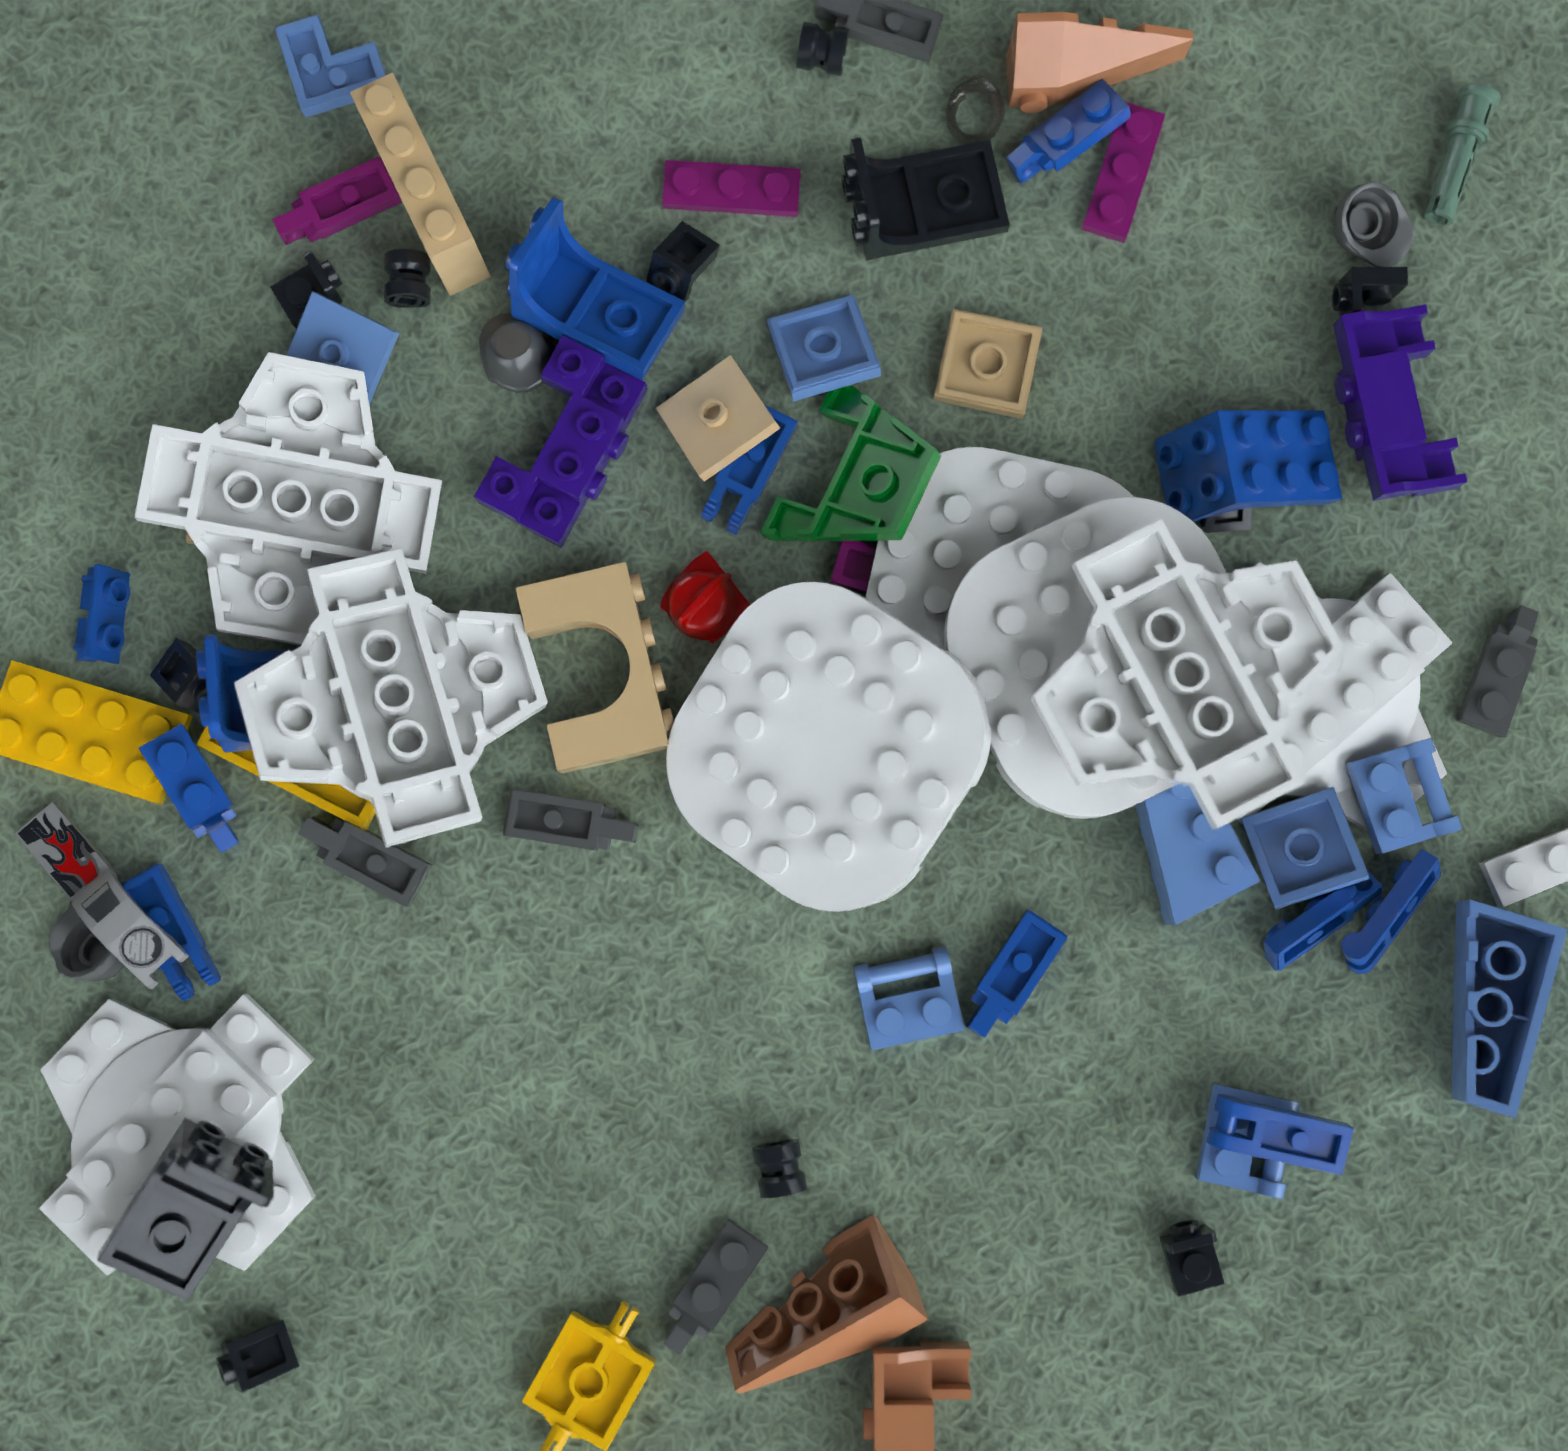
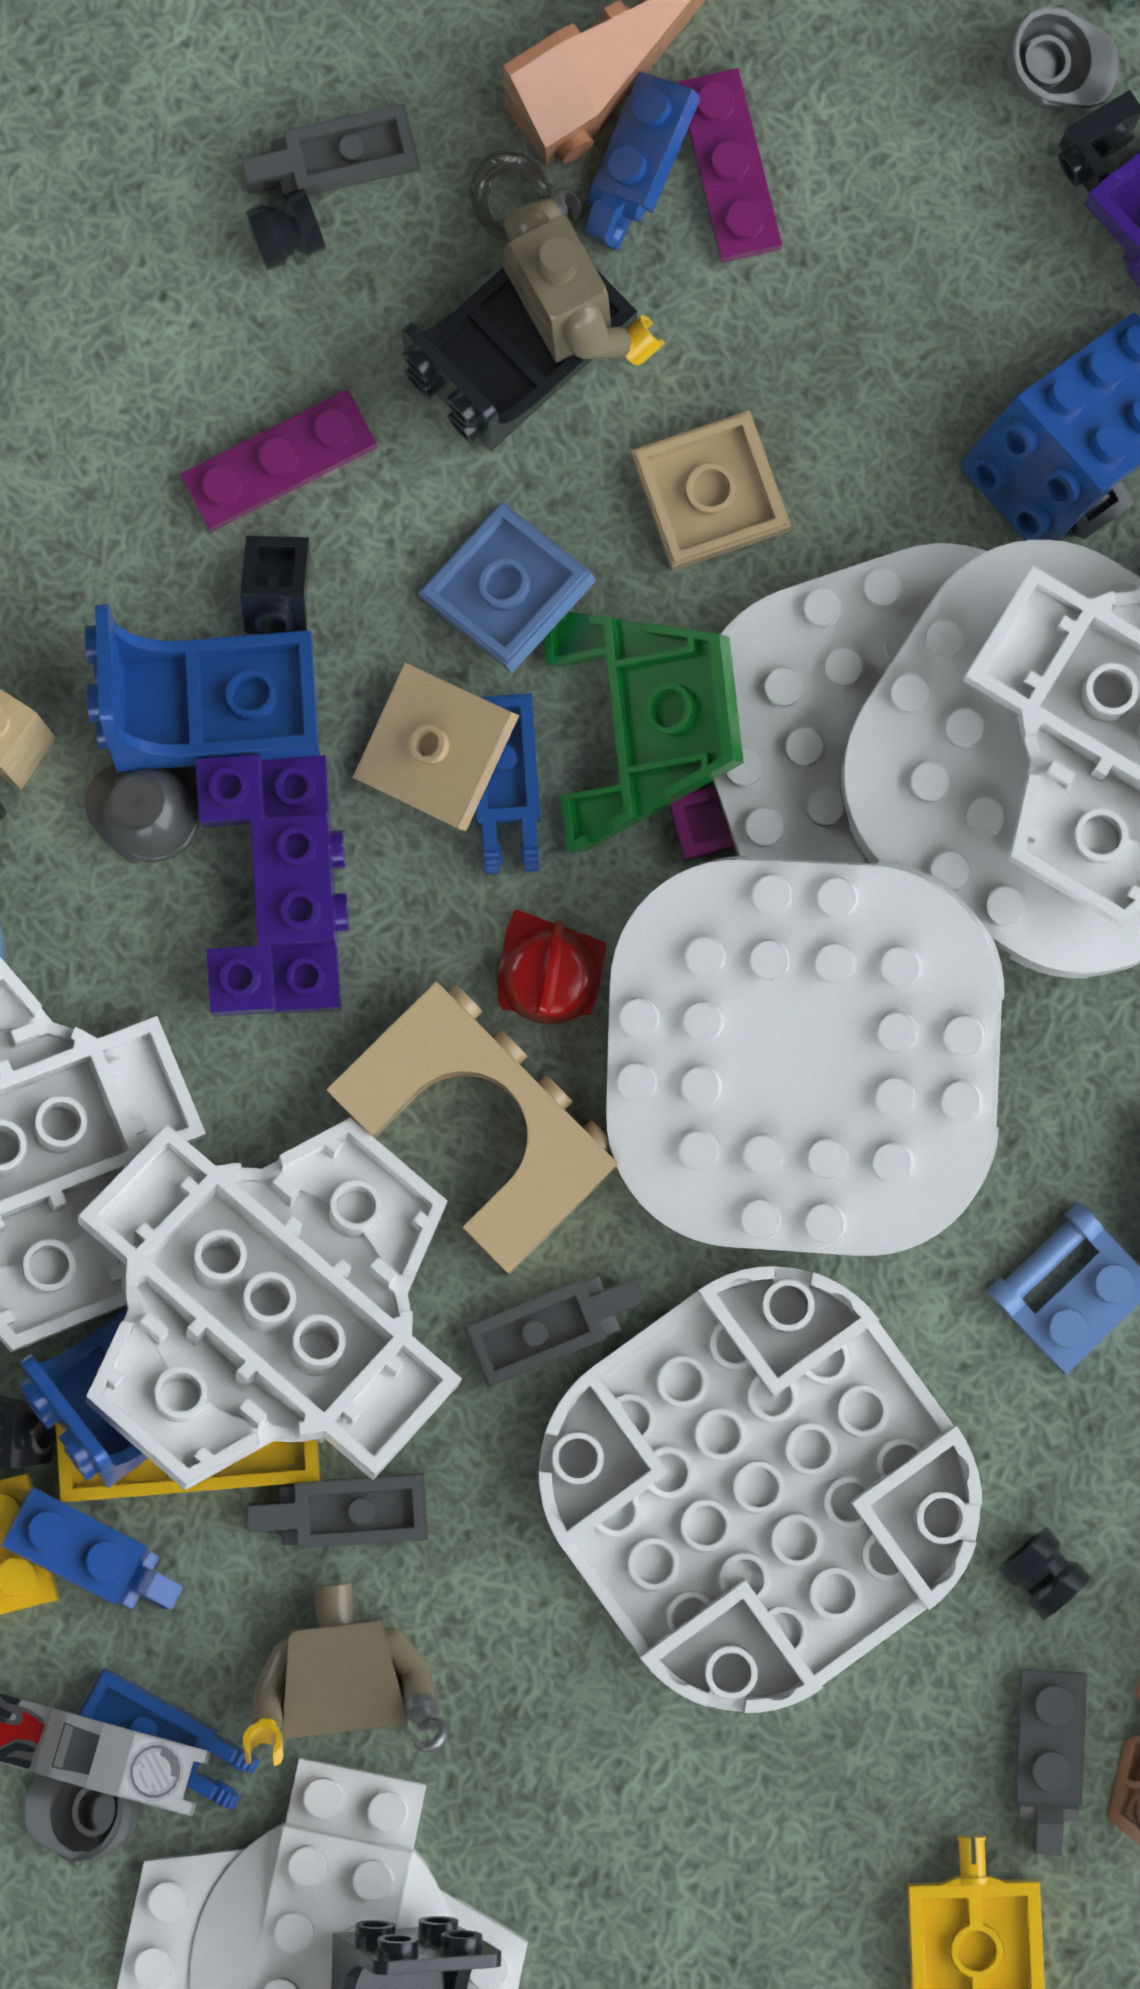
camera: 30 degrees left, 0 degrees up
(296, 961) = (341, 1680): none -> dark tan torso
(631, 1004) = (759, 1489): none -> white plate
(971, 180) = (564, 287): none -> dark tan torso

